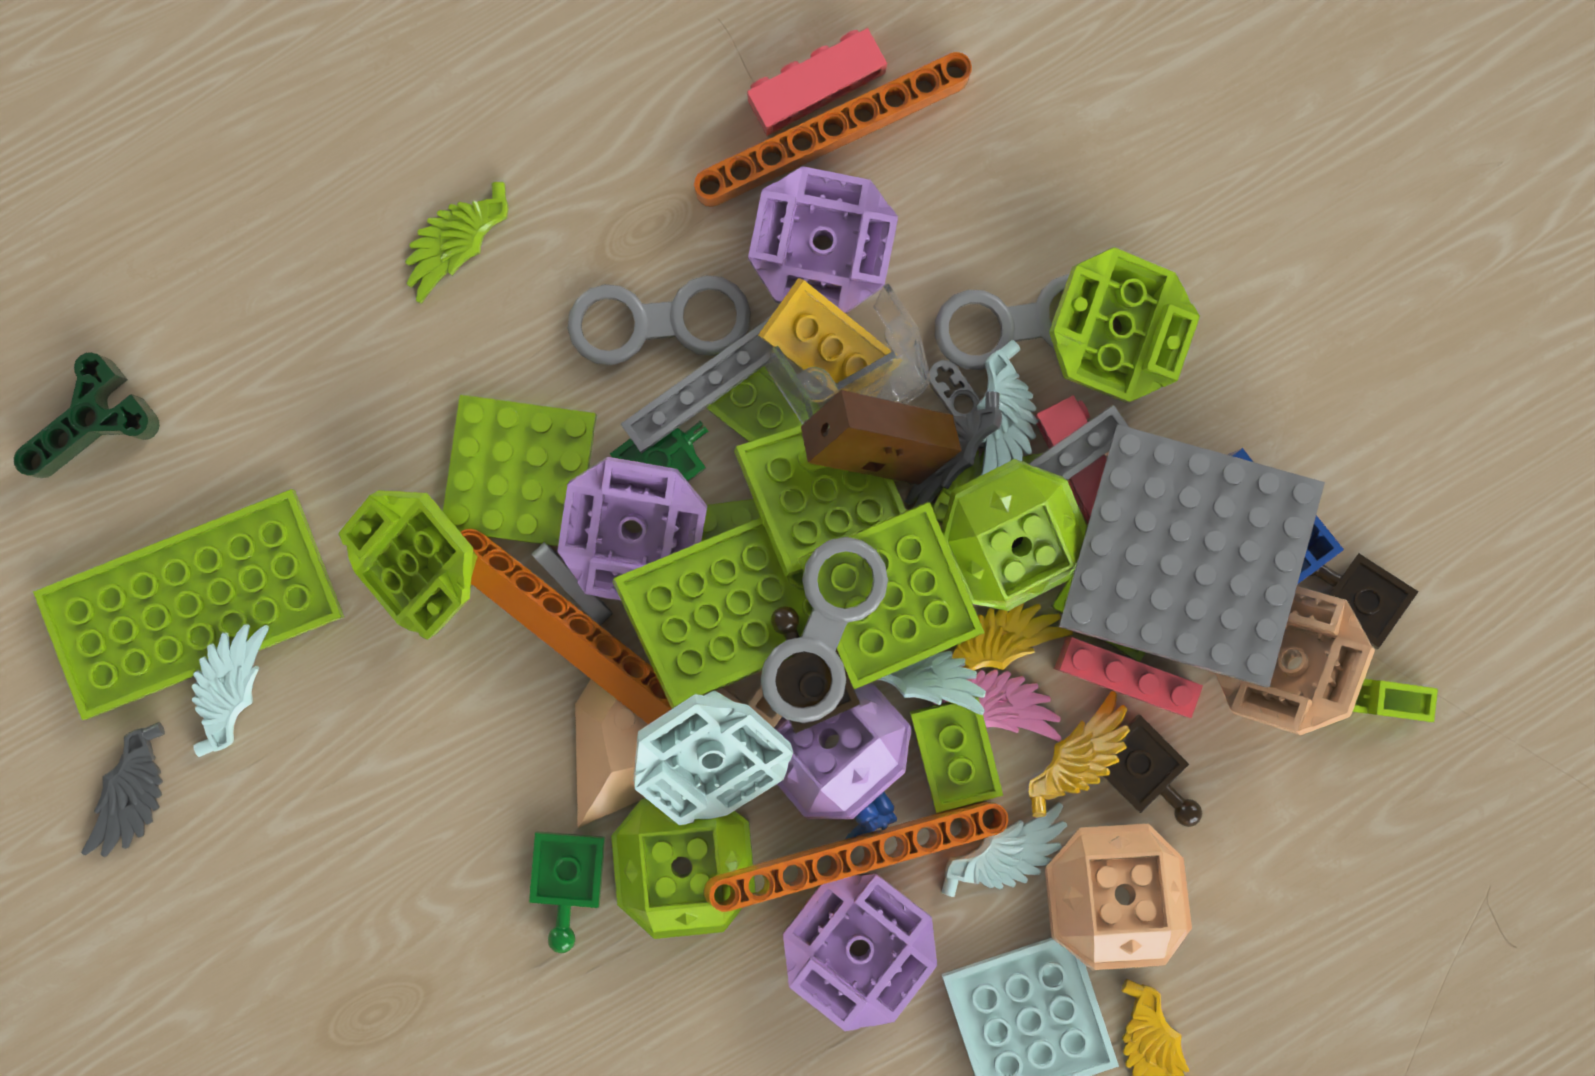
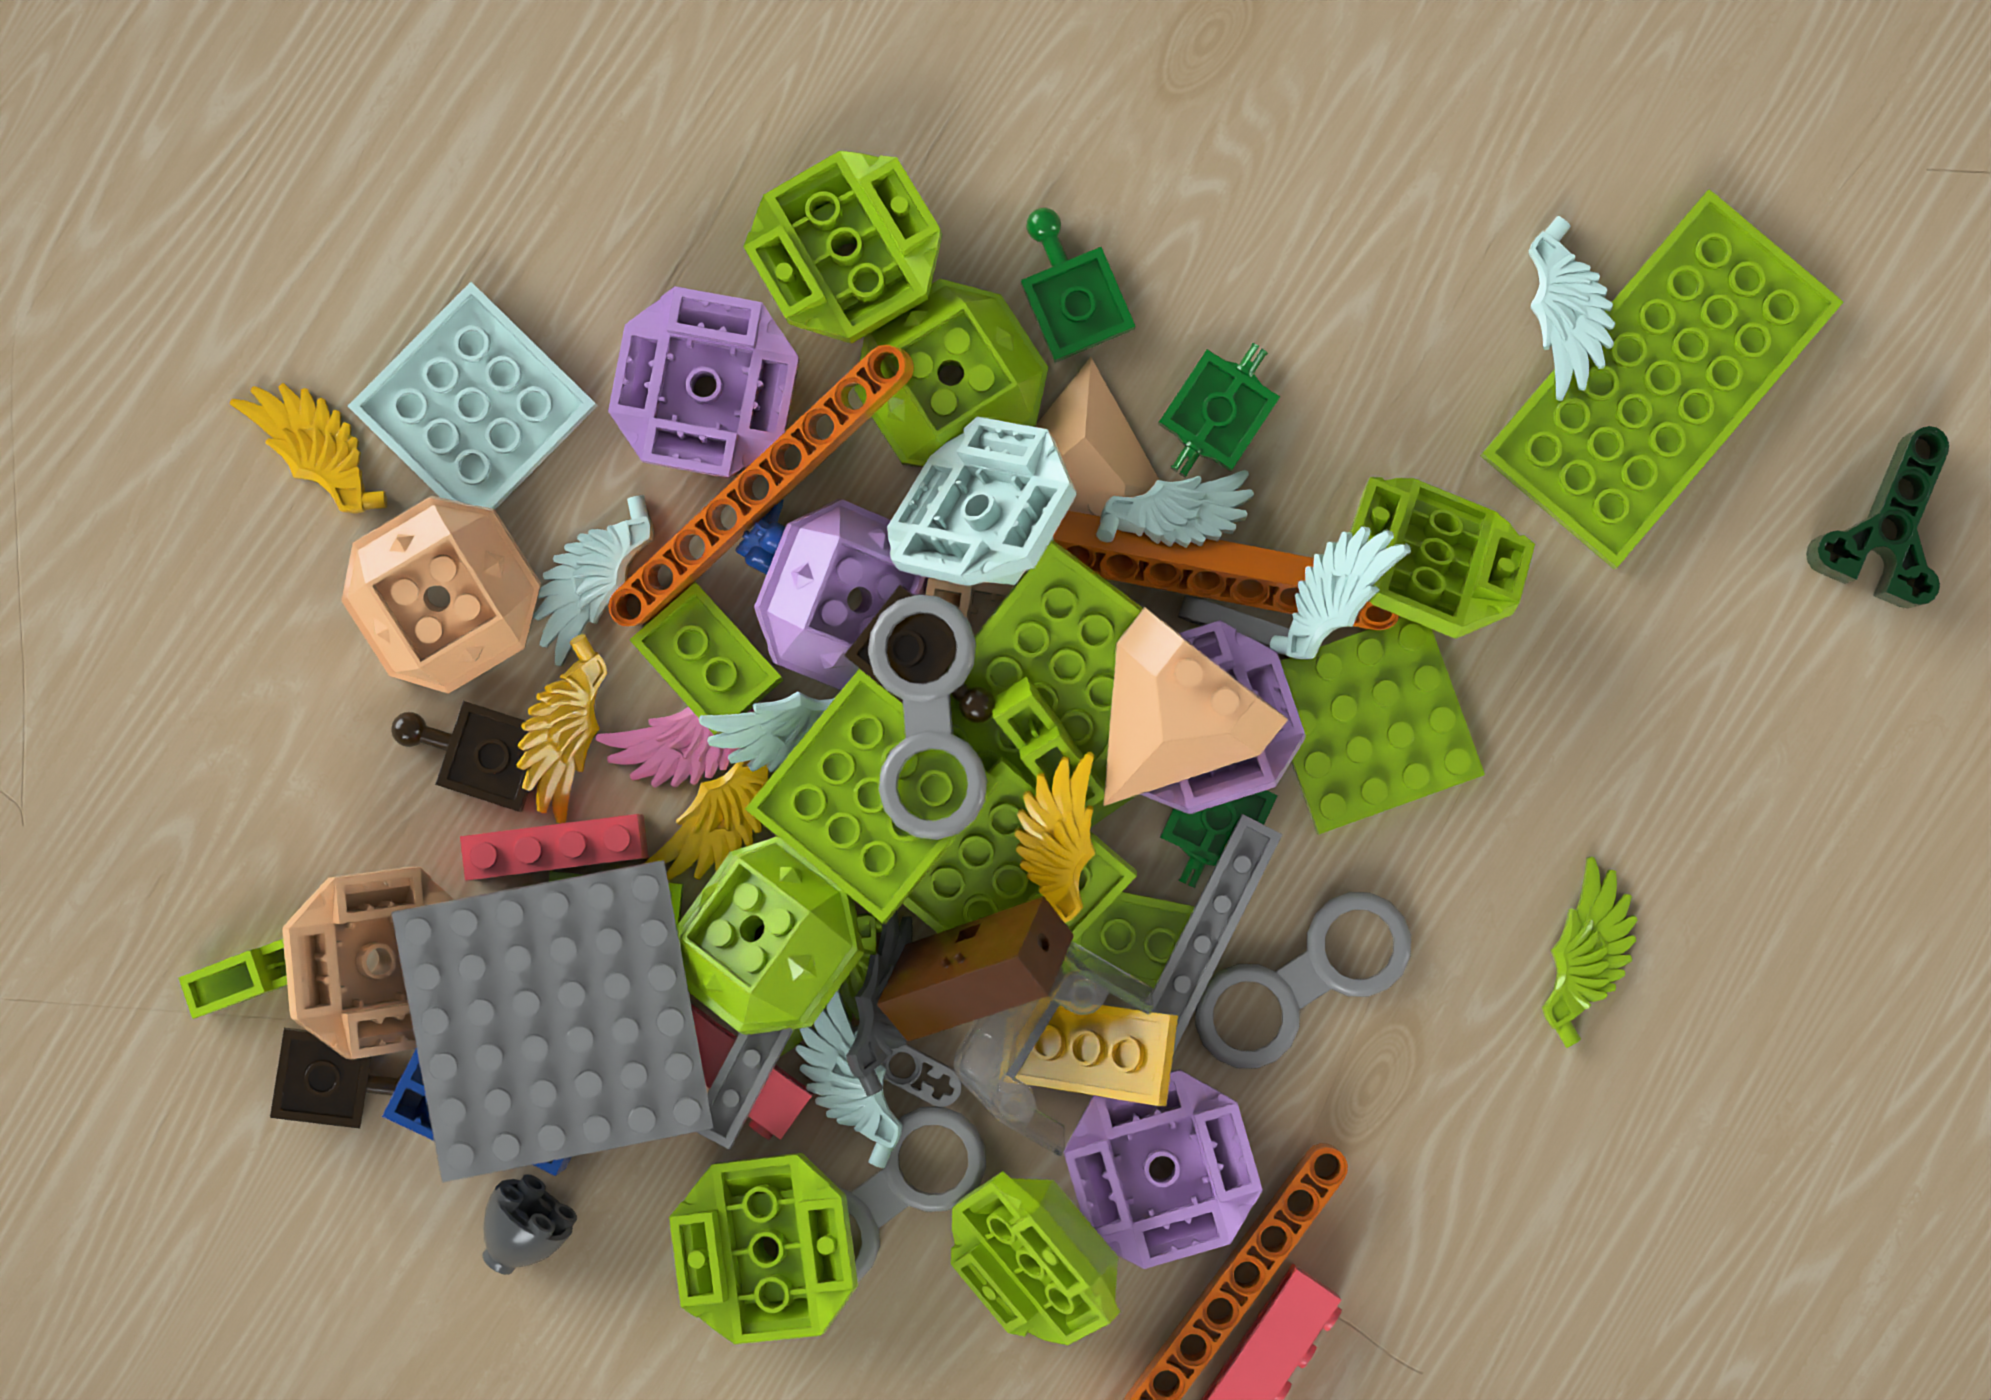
camera: 165 degrees right, 0 degrees up
(128, 793) = (1614, 136): dark grey animal -> none
(491, 570) = (1337, 589): none -> light aqua animal
(508, 743) = (1219, 410): none -> green plate
(573, 685) = (1179, 511): none -> light aqua animal
(649, 542) = (1176, 713): none -> light nougat wedge
(704, 1031) = (835, 204): none -> lime piece
(751, 565) = (1040, 735): none -> lime slope
(776, 500) = (1058, 836): none -> yellow animal
(941, 223) = (1034, 1259): none -> lime piece
(1277, 429) = (523, 1224): none -> dark grey piece

